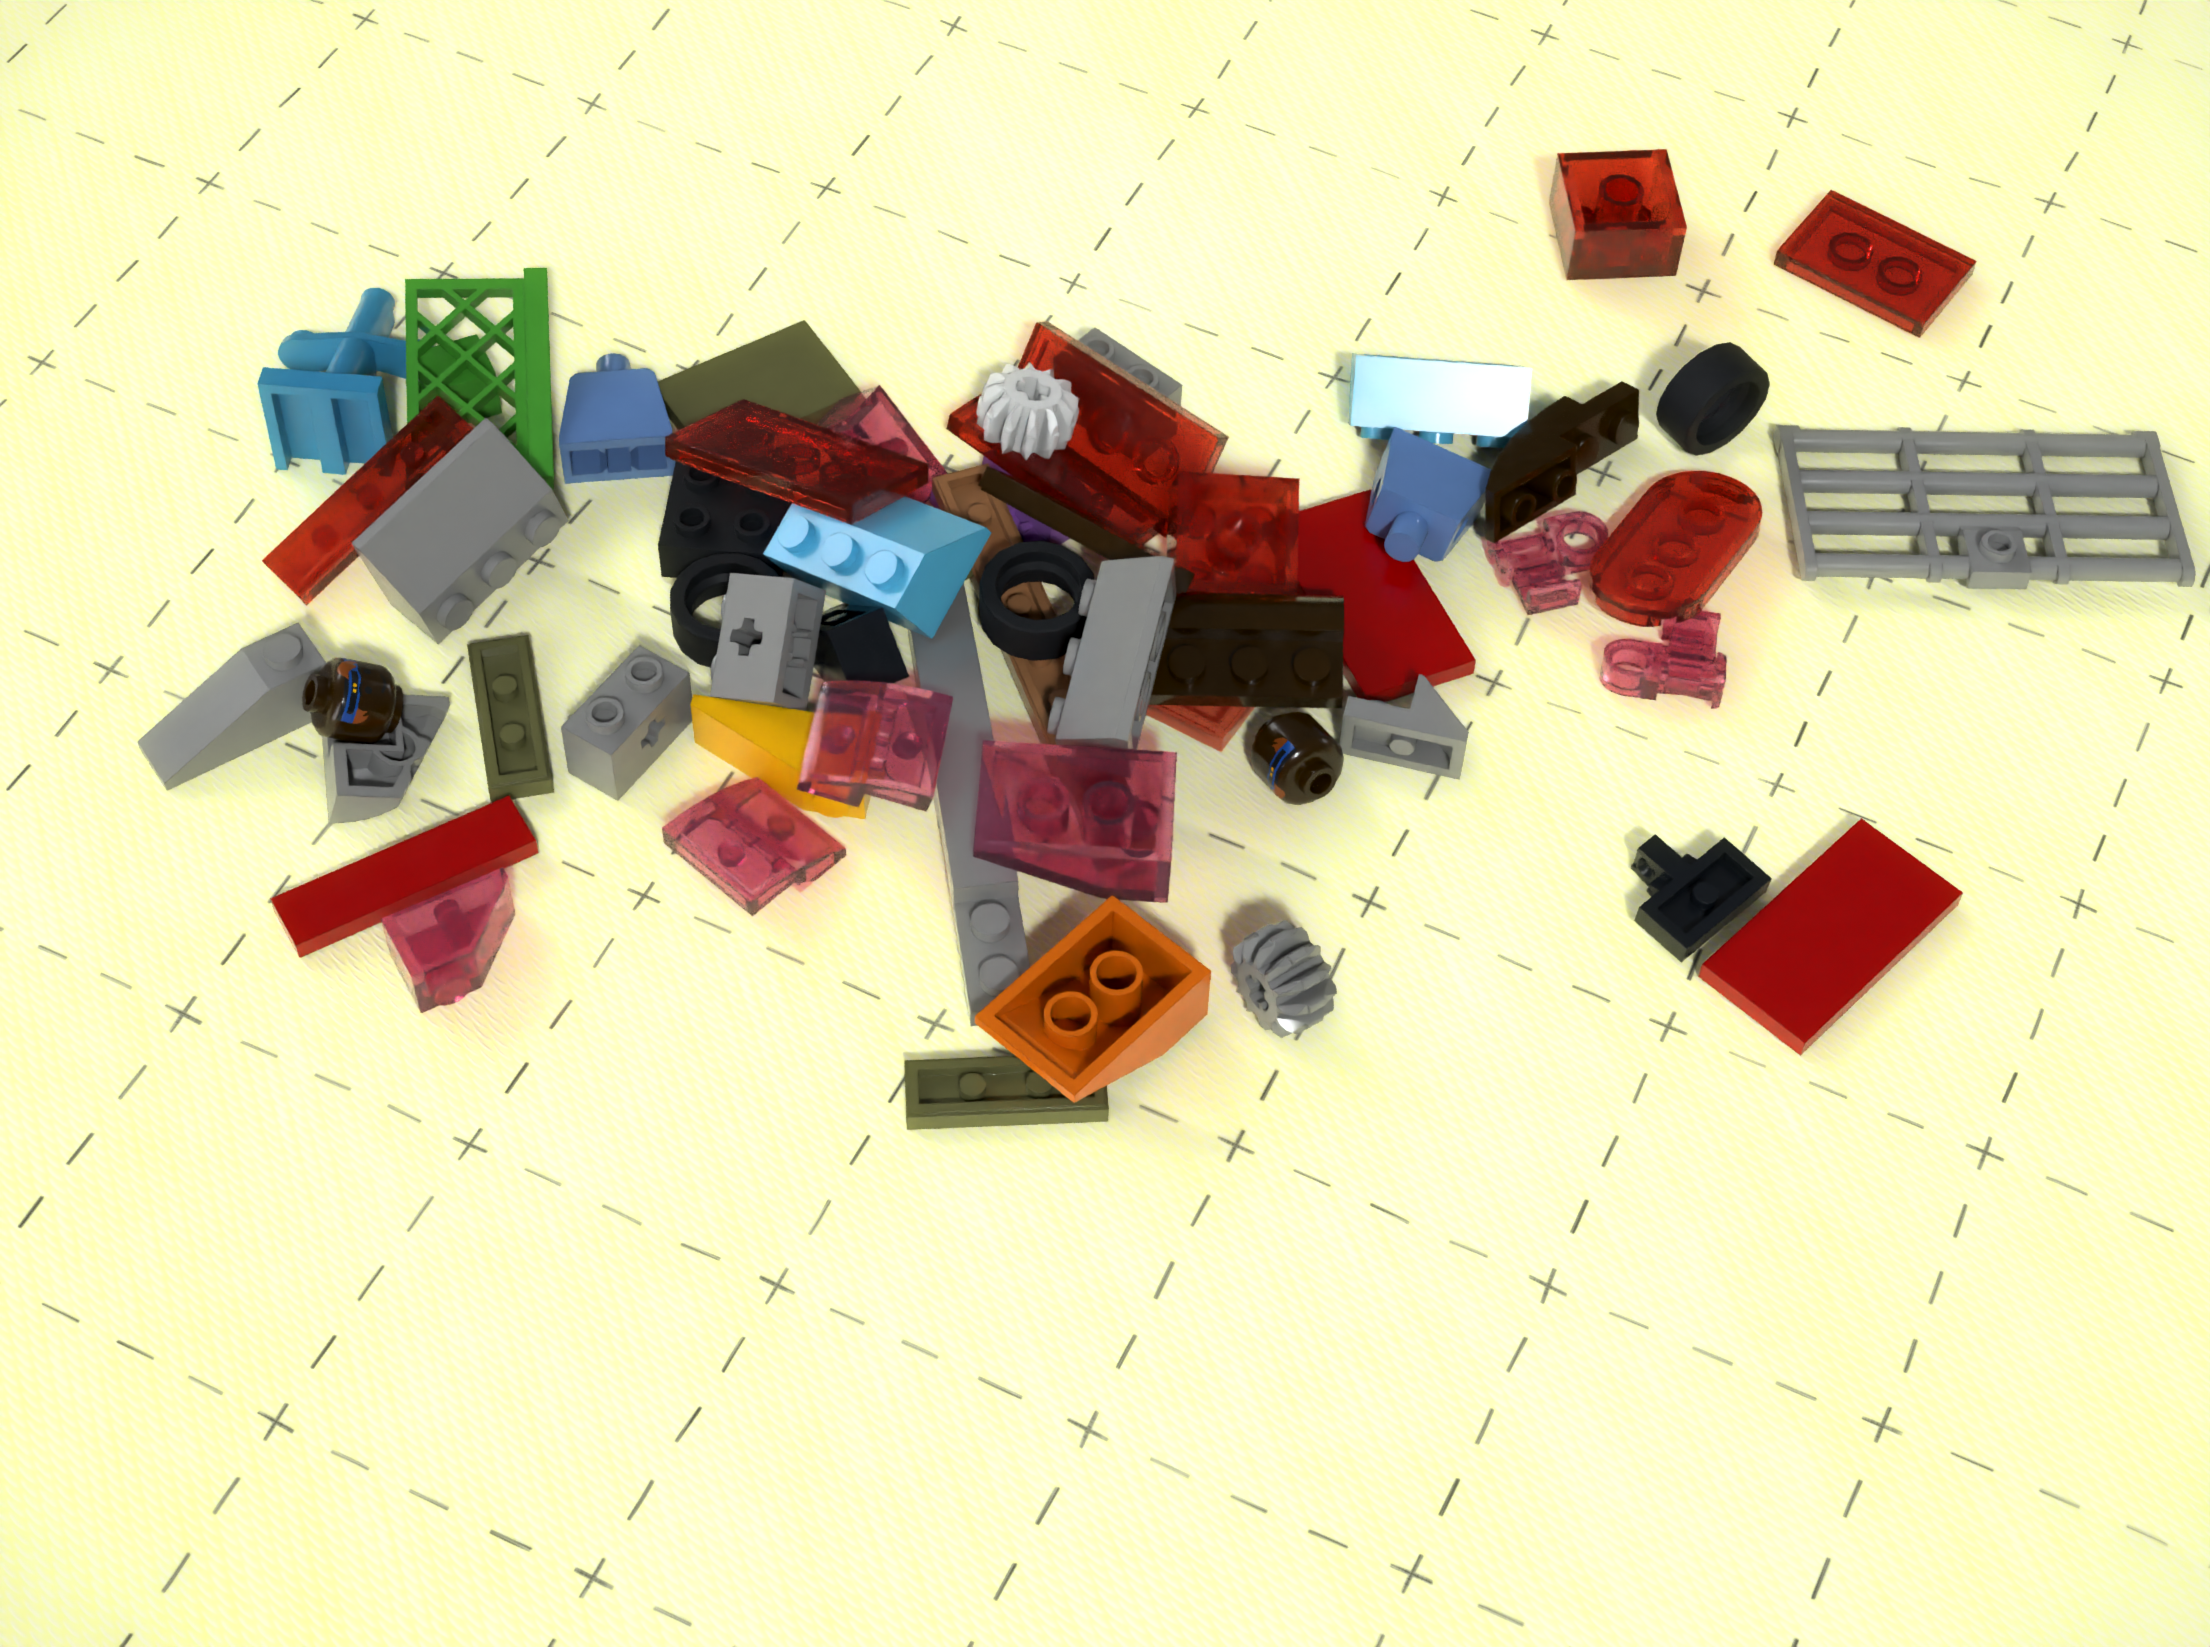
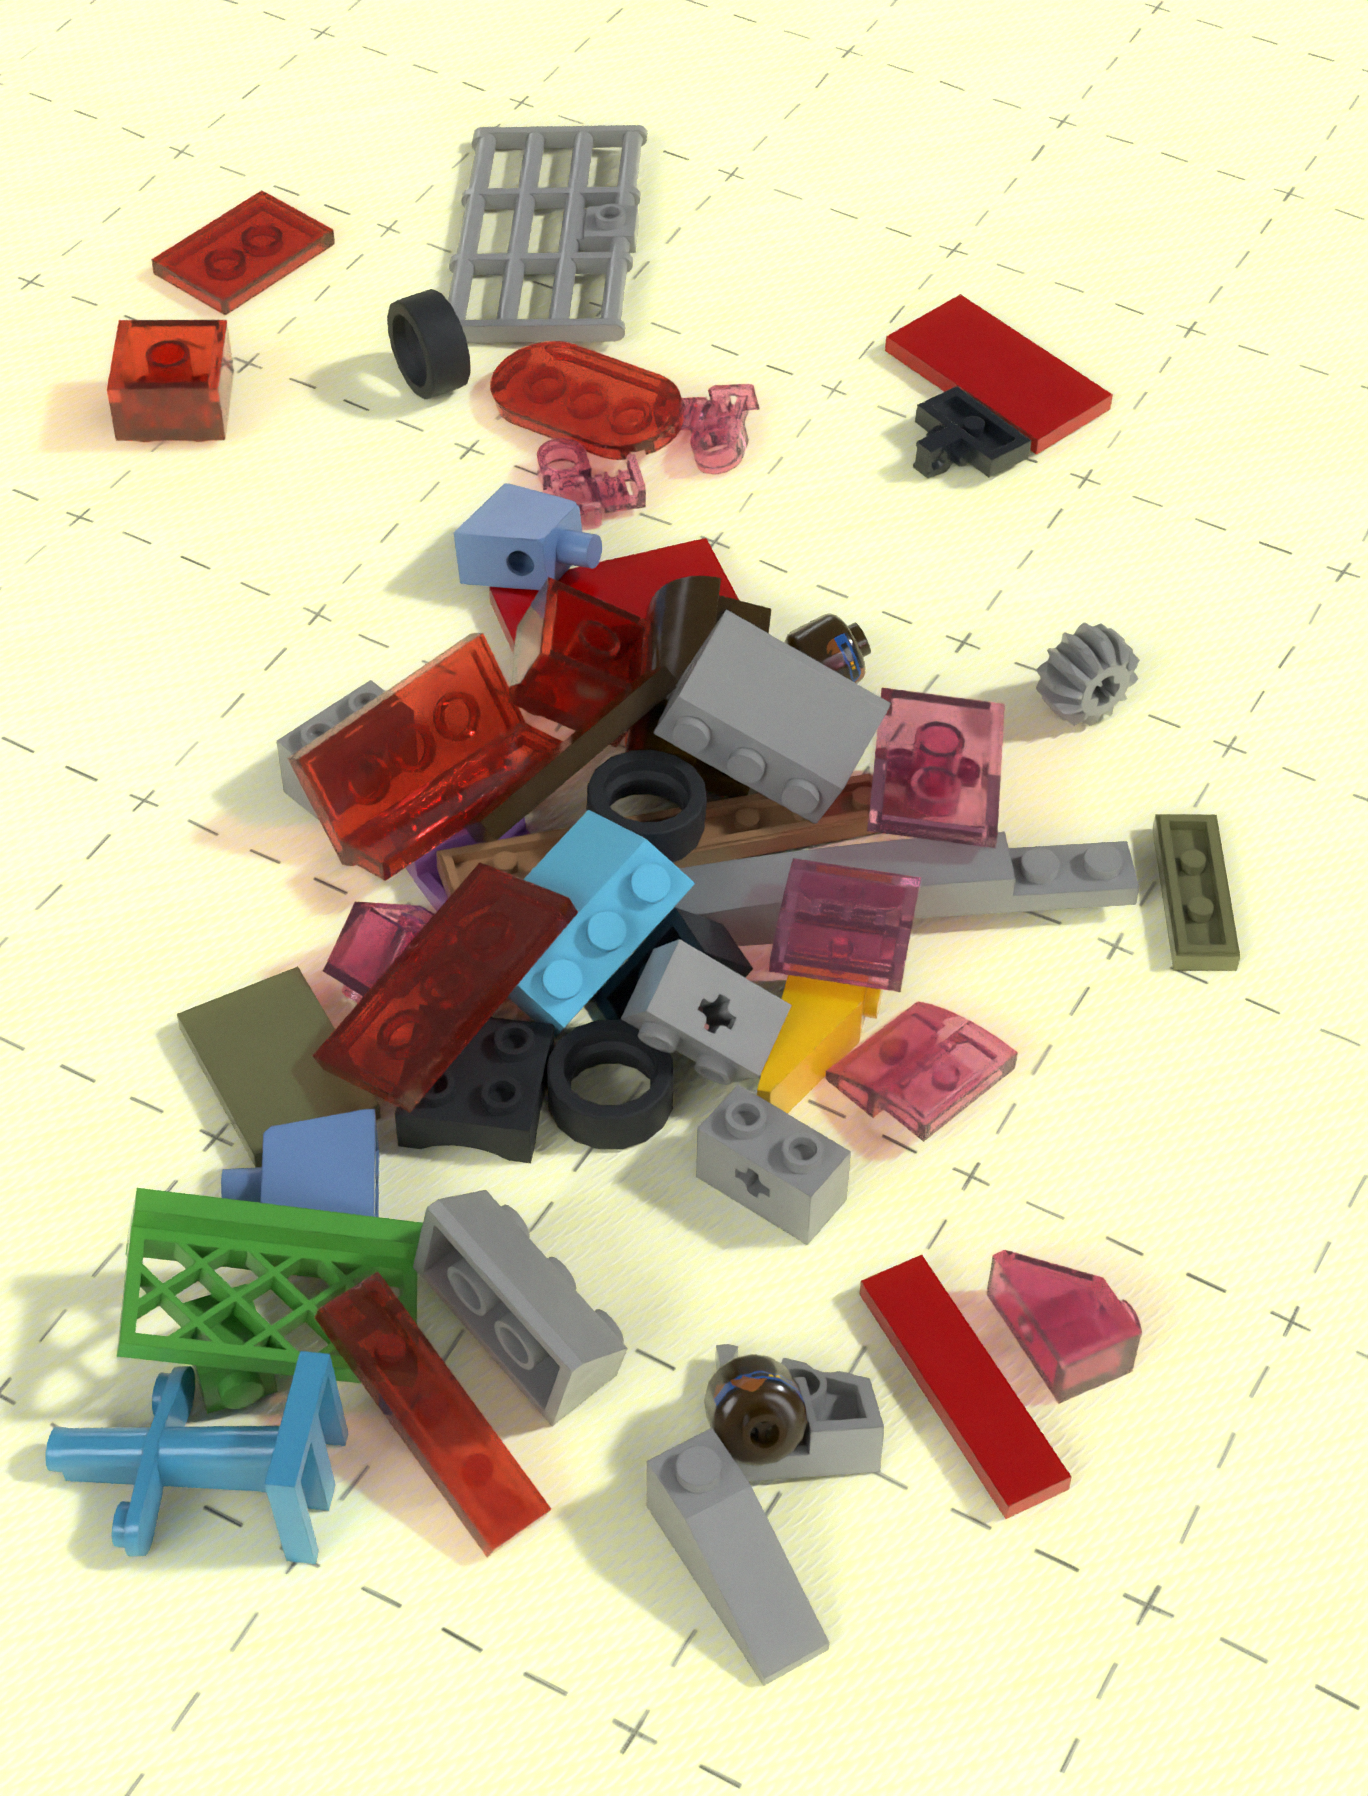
camera: 85 degrees left, 5 degrees down
(510, 718) = (737, 1293): olive tile -> none
(1027, 411) = (403, 788): white gear -> none
(1100, 1002) = (1130, 788): orange slope -> none
(1415, 738) = (788, 578): light grey slope -> none
(1438, 398) = (376, 527): slope -> none
(1549, 451) = (478, 456): dark brown slope -> none

